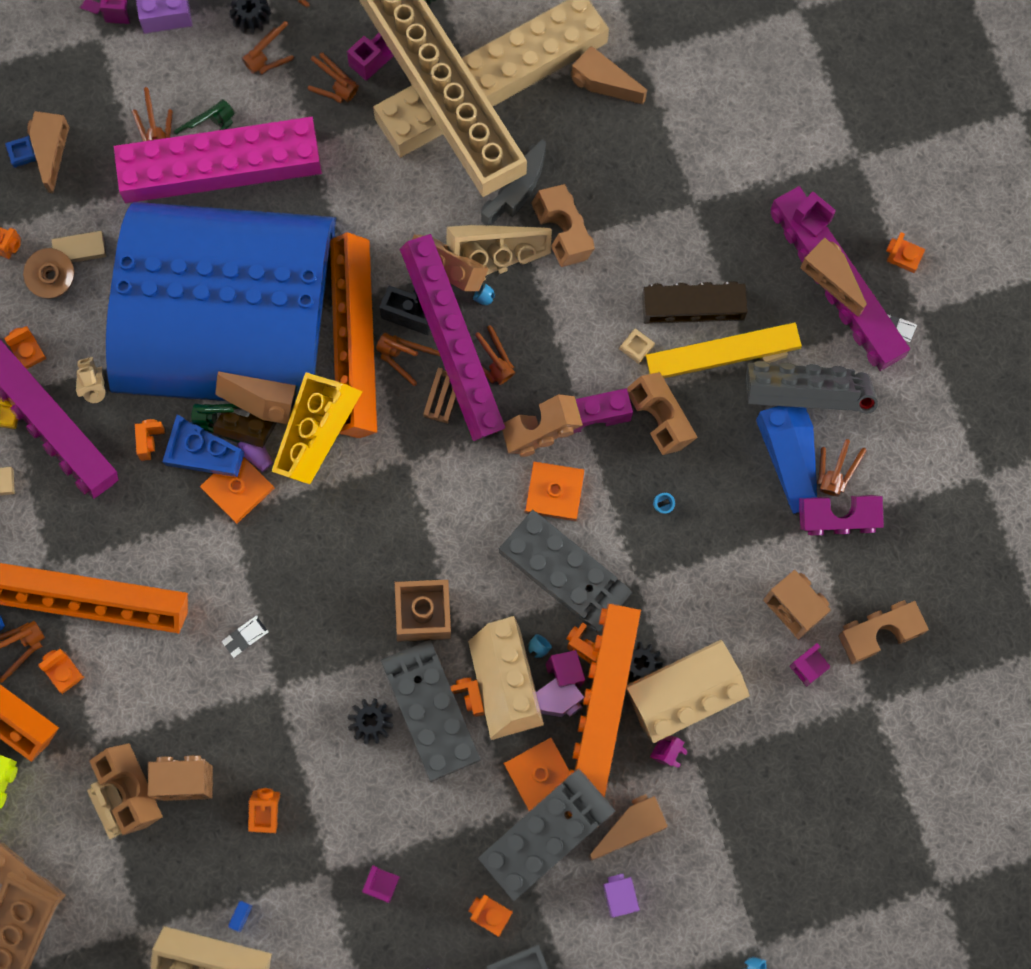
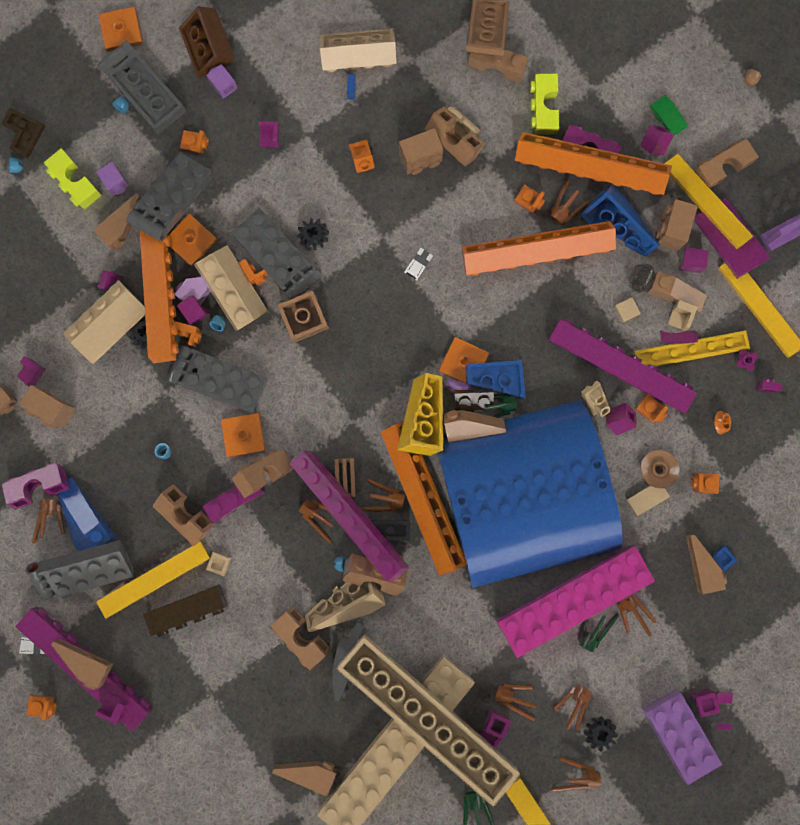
camera: 165 degrees right, 10 degrees up
(68, 348) = (621, 419): none -> magenta panel
(144, 442) = (539, 369): orange bracket -> none
(690, 938) = (62, 167): none -> neon yellow arch

